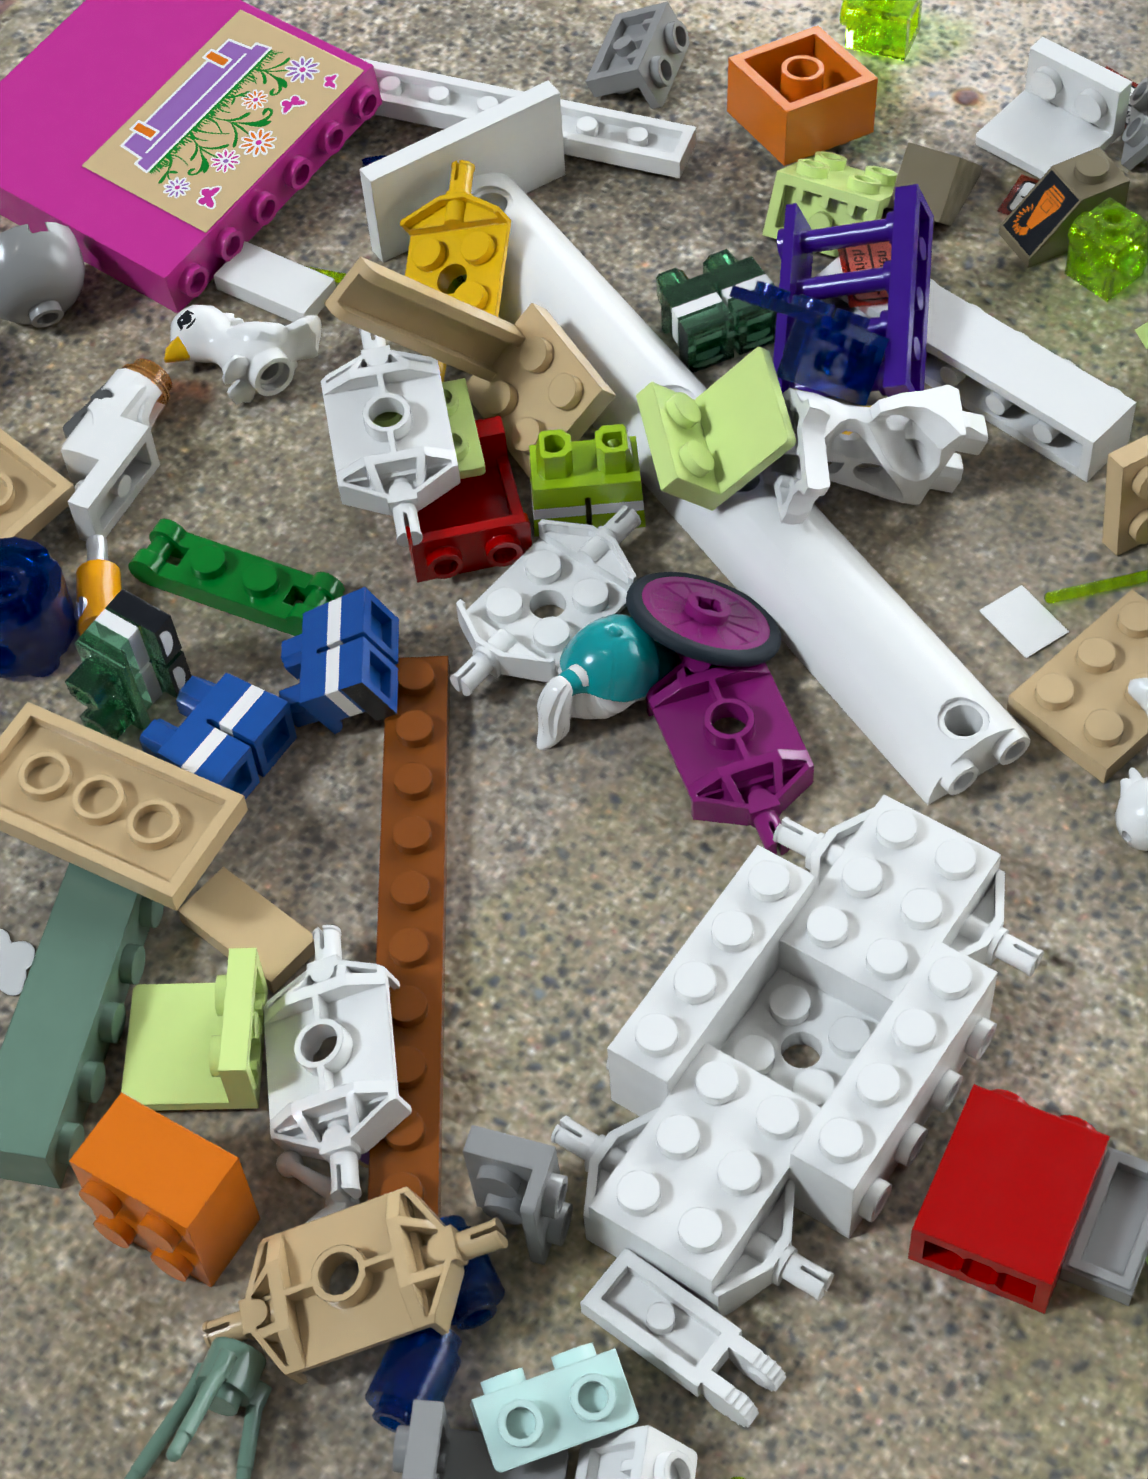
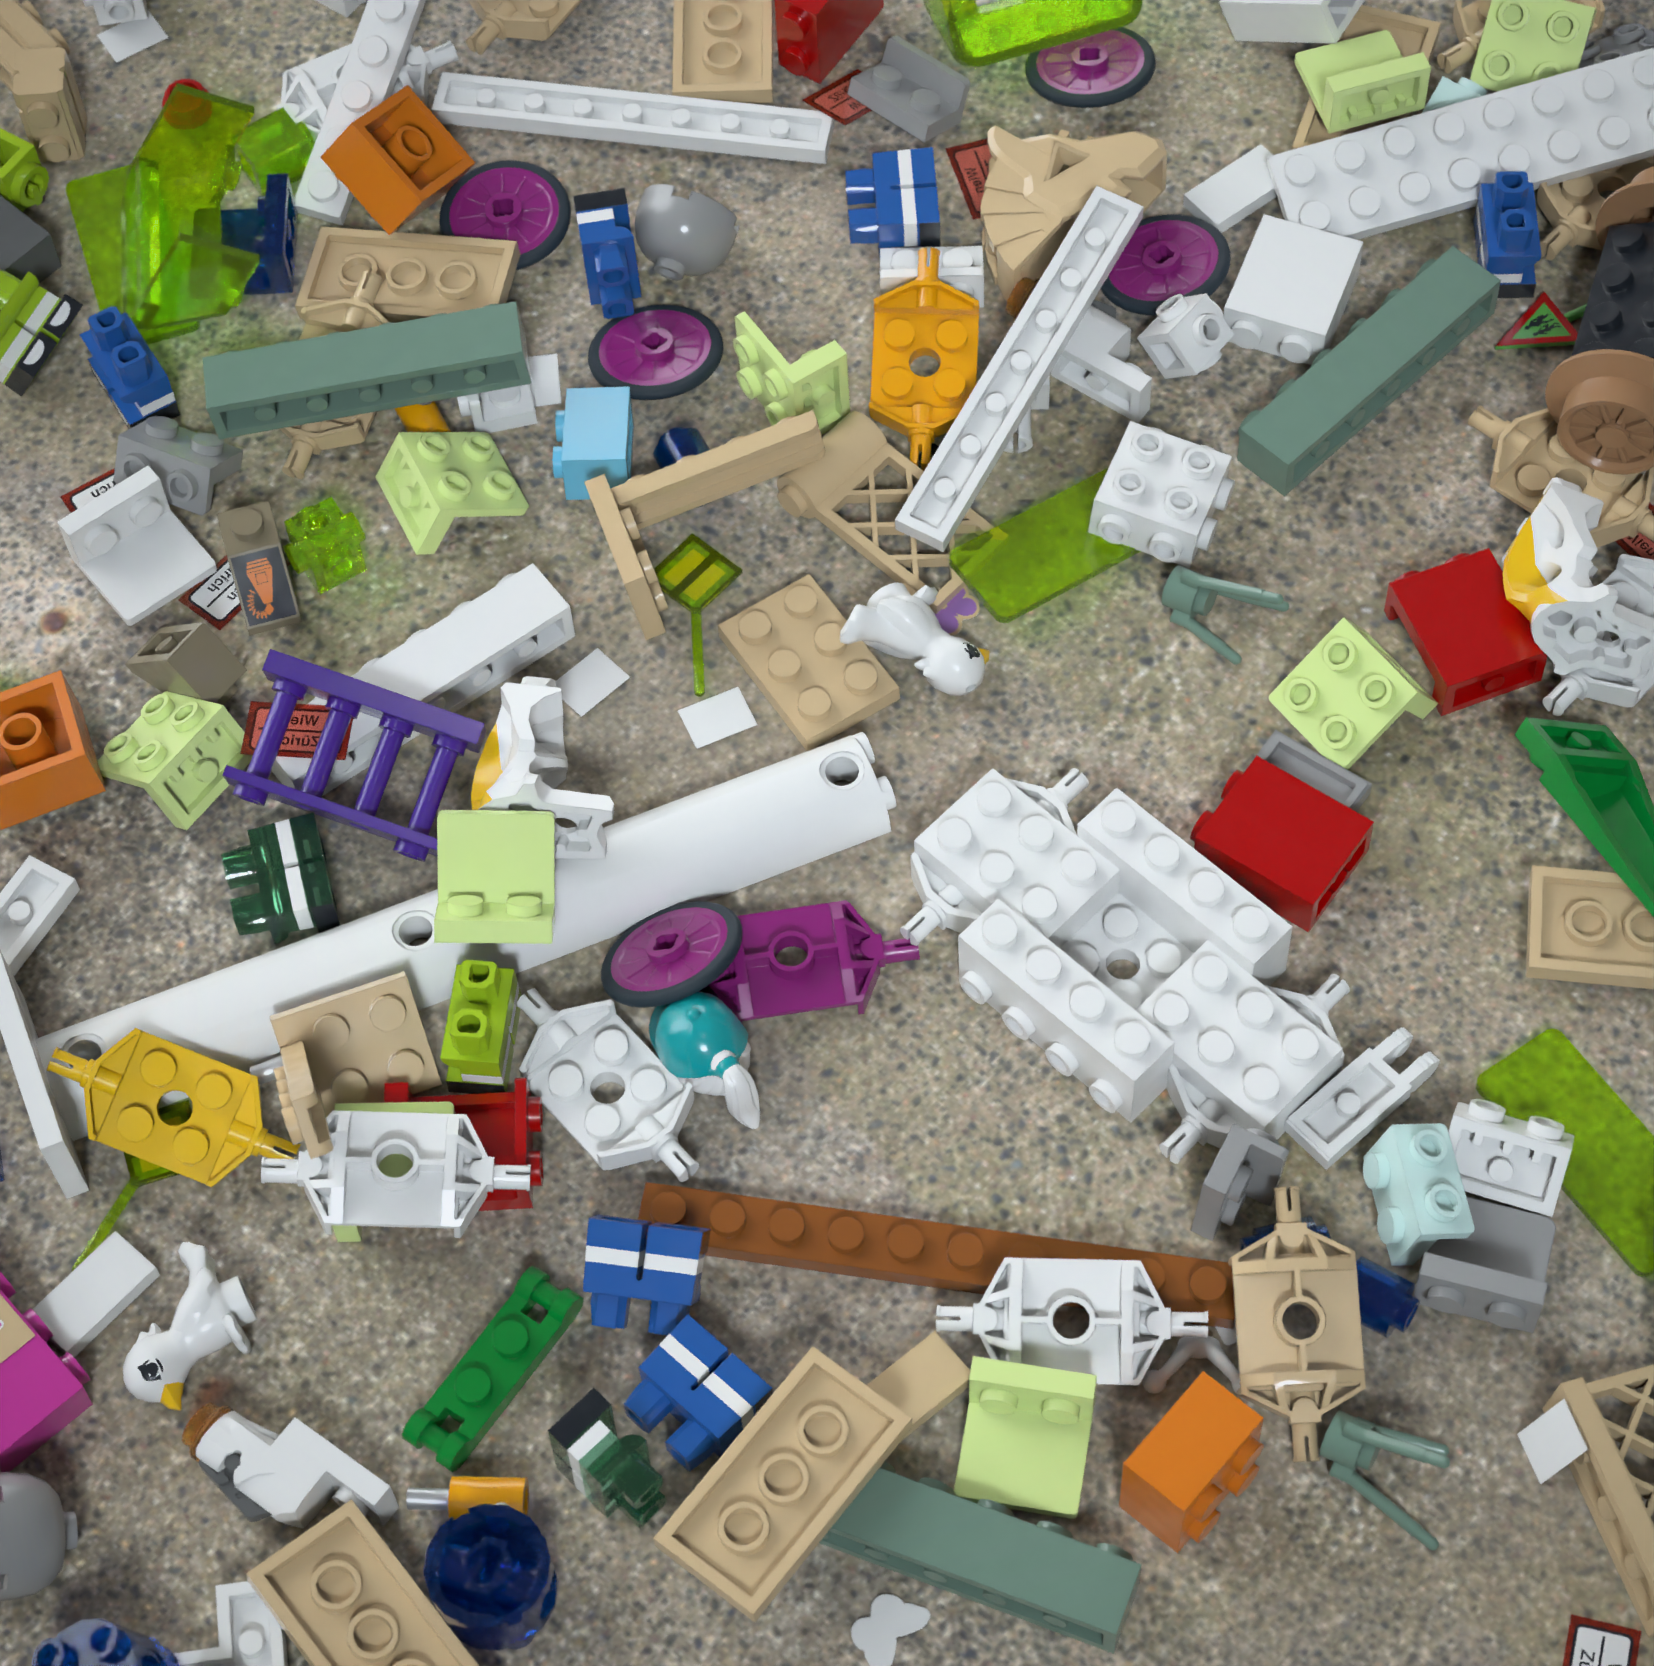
camera: 80 degrees left, 5 degrees up
(822, 350) = (413, 757): clear blue bracket -> none
(1032, 504) = (590, 681): none -> white sticker

